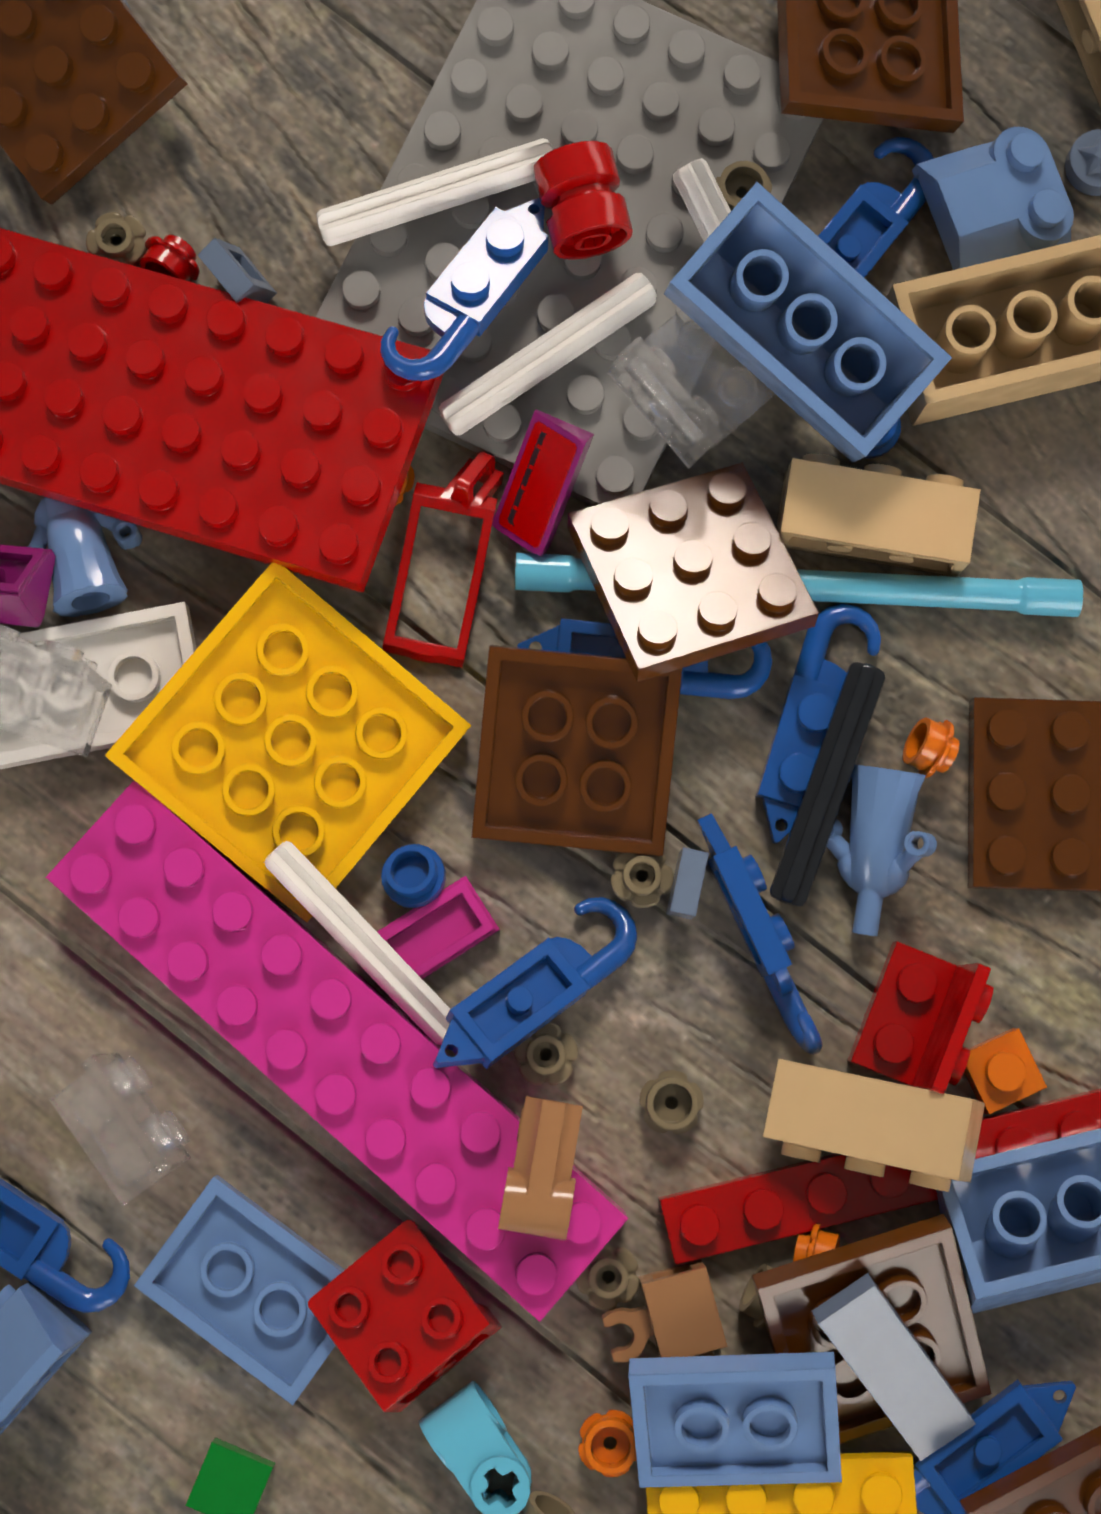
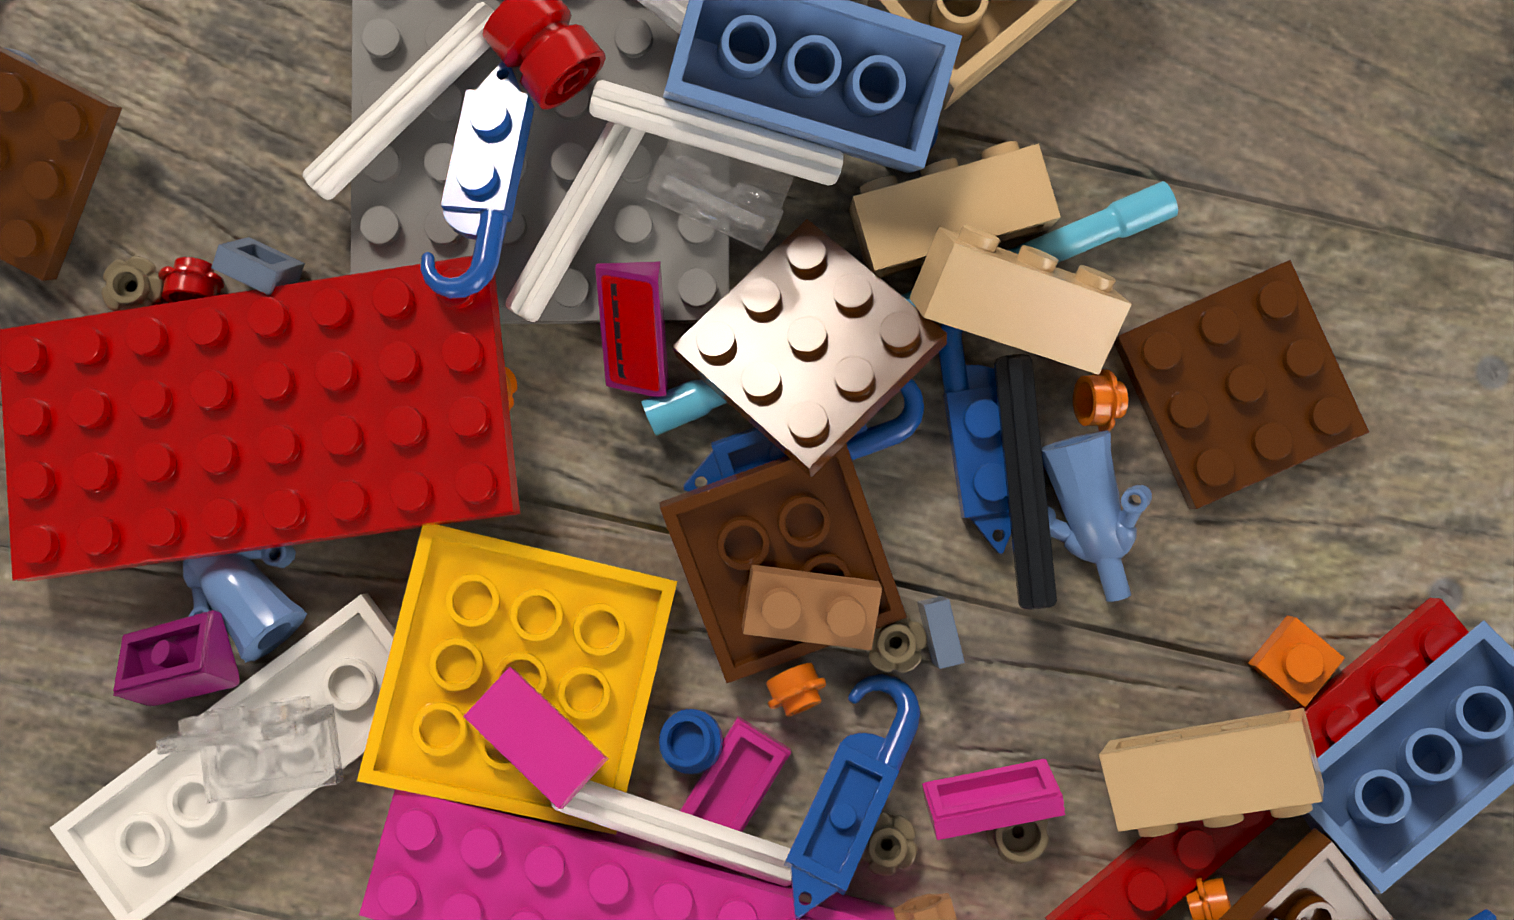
camera: 20 degrees left, 5 degrees up
(281, 793) = (536, 738): none -> dark pink tile
(458, 499) = (562, 380): red sword -> none
(531, 873) = (796, 689): none -> orange plate
(581, 802) = (811, 607): none -> medium nougat plate
(662, 1057) = (993, 799): none -> dark pink tile
(697, 345) = (715, 133): none -> white axle
(763, 934) = (1031, 643): blue plate -> none
(899, 616) = (1020, 298): none -> tan brick
(921, 1019) = (1211, 654): red bracket -> none

